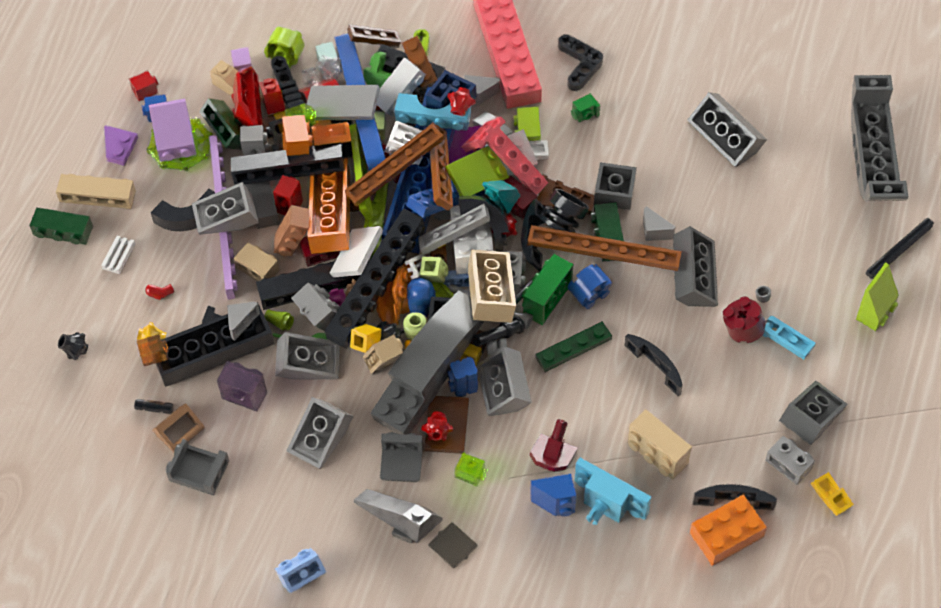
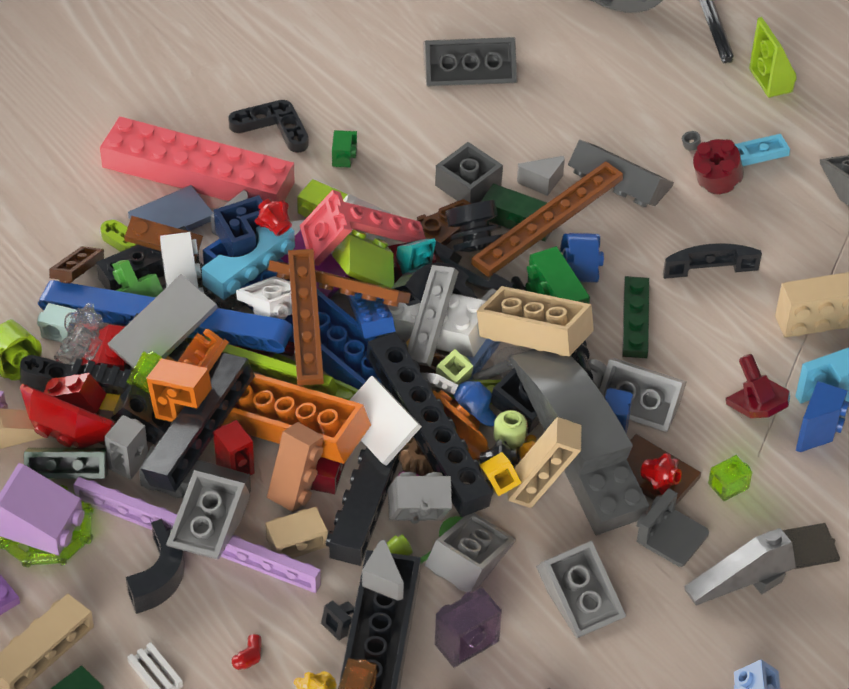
camera: 60 degrees left, 10 degrees down
(459, 57) = (176, 210): none -> sand blue tile

